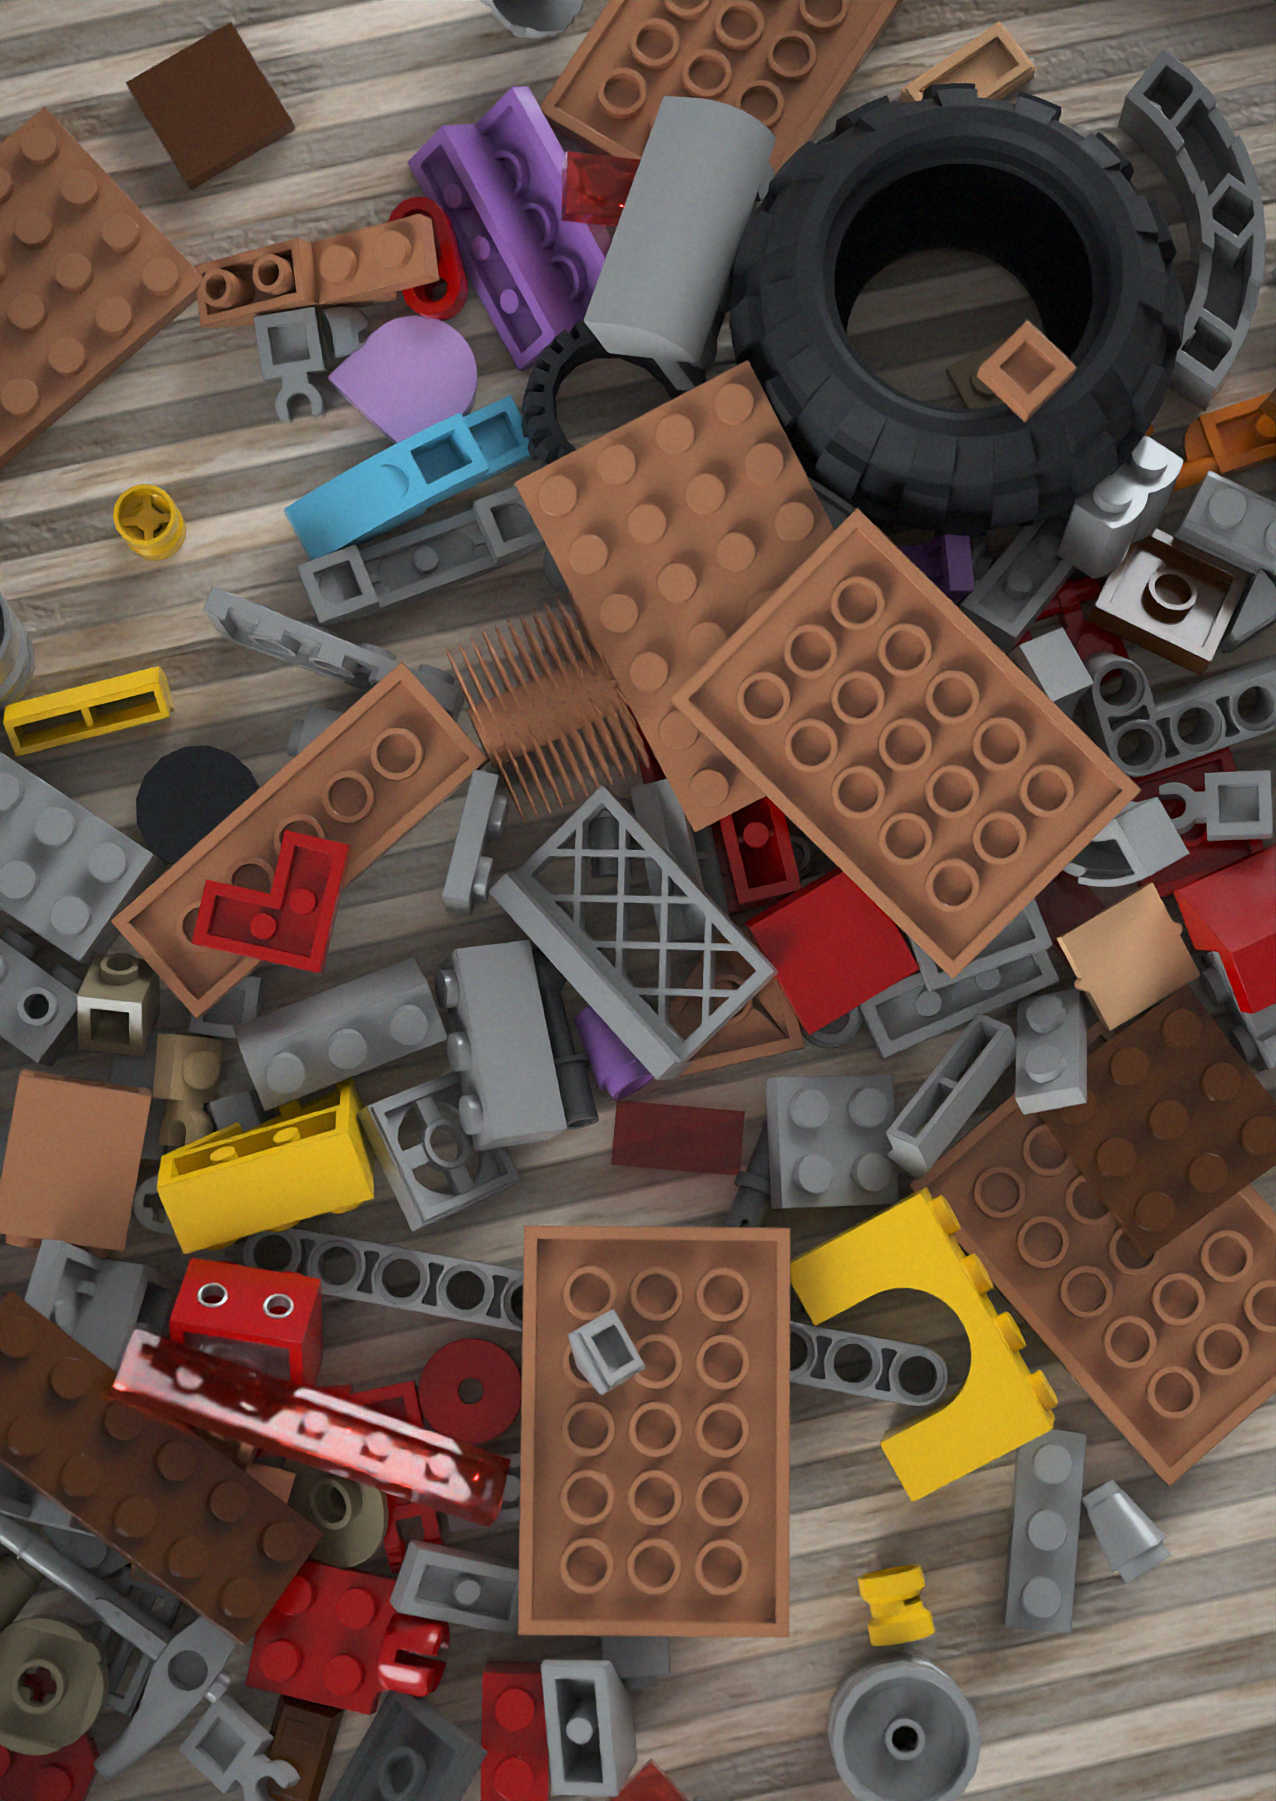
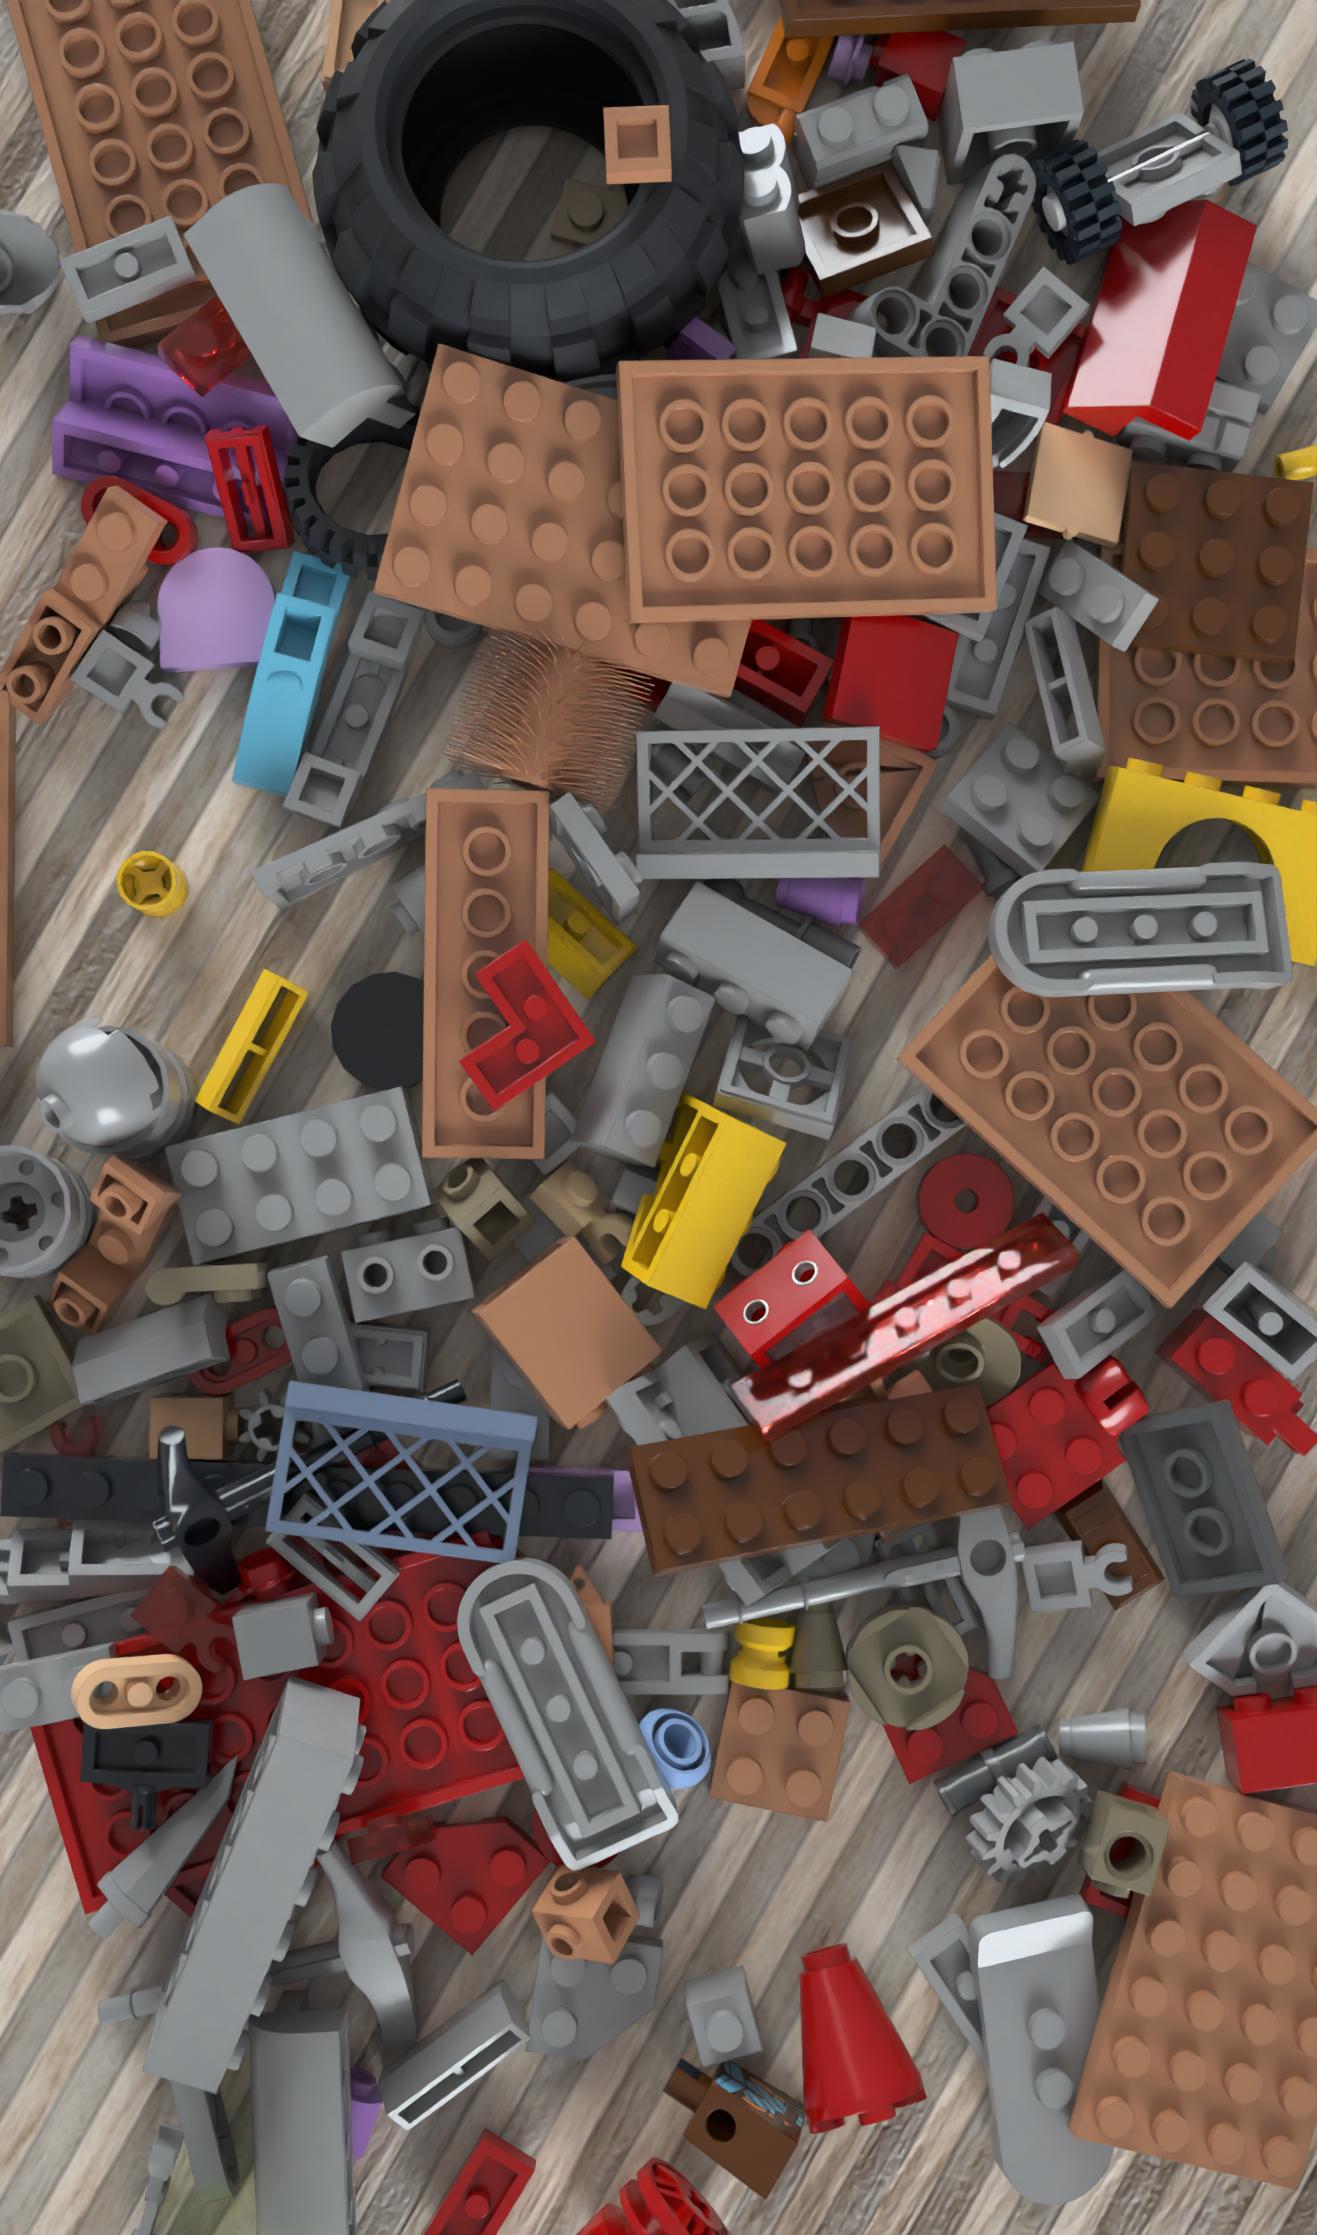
camera: 55 degrees left, 5 degrees up
(408, 888) = (581, 939): none -> yellow slope
(532, 327) = (261, 442): none -> red tile
(605, 1352) = (1038, 1077): light grey slope -> none
(609, 77) = (128, 269): none -> light grey plate
(803, 1332) = (1143, 930): none -> light grey piece

